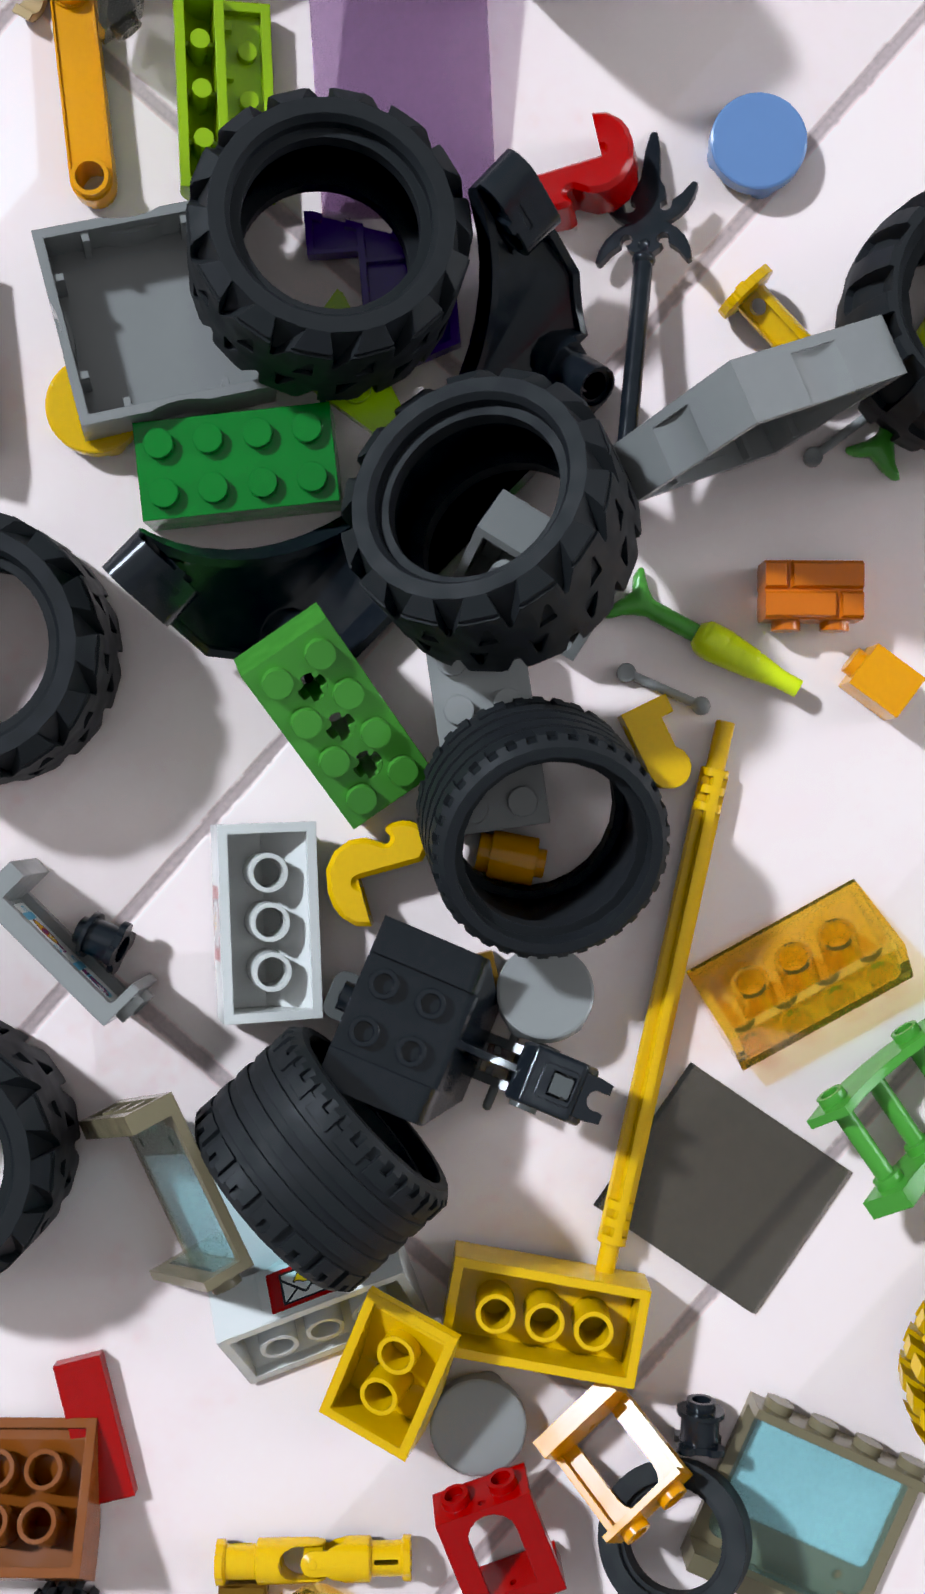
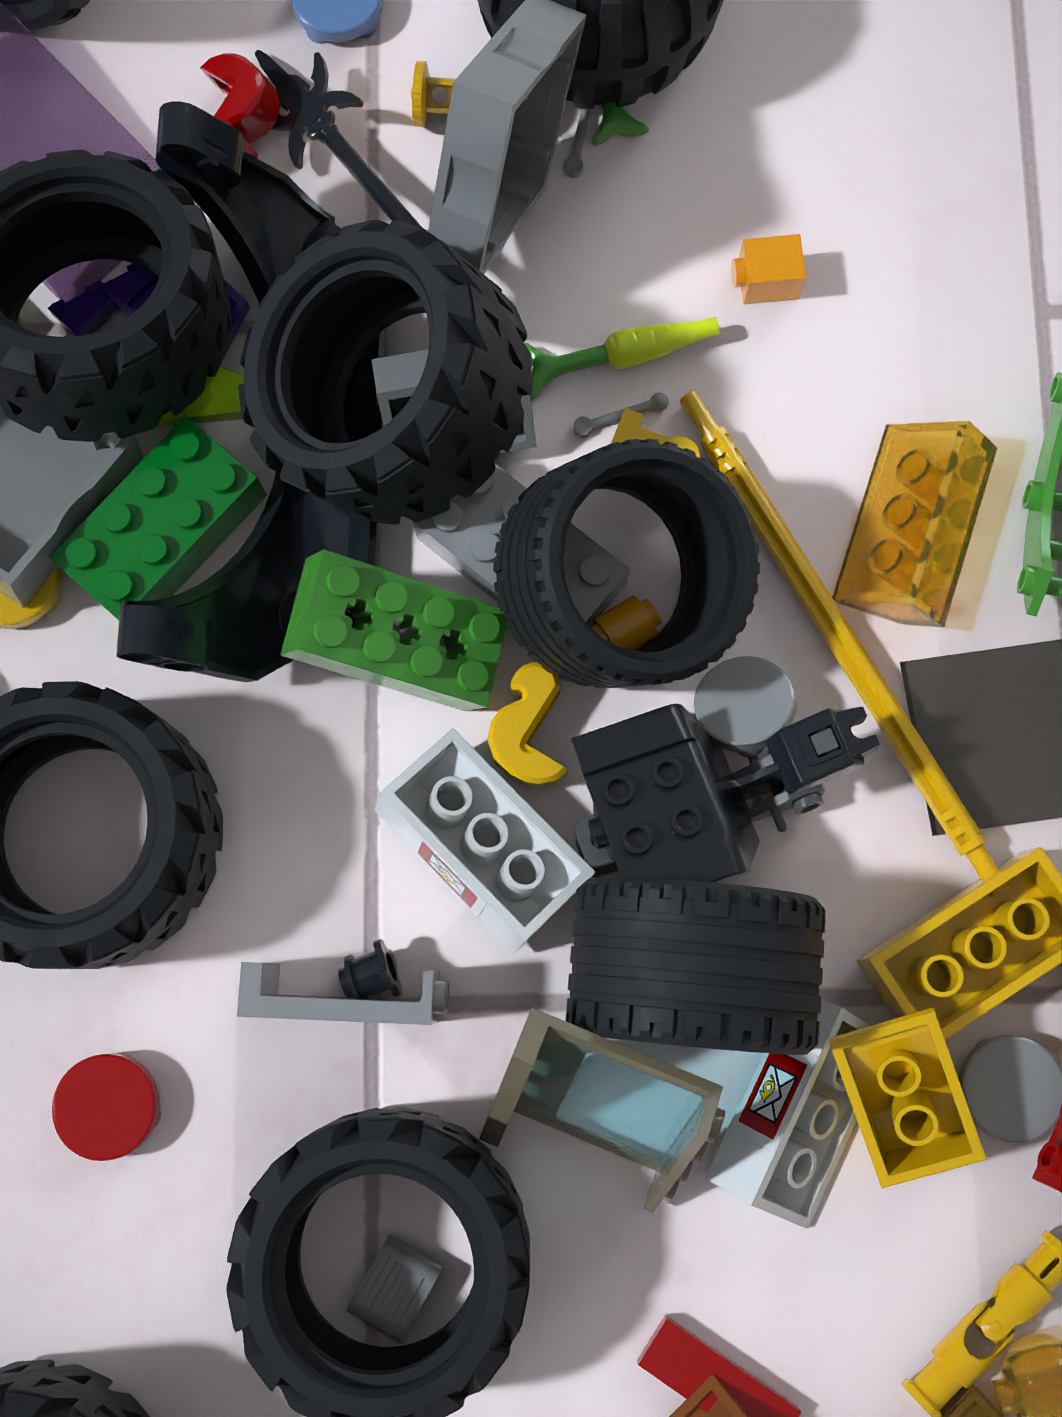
camera: 45 degrees left, 10 degrees down
(810, 593) = (662, 254): orange brick -> none

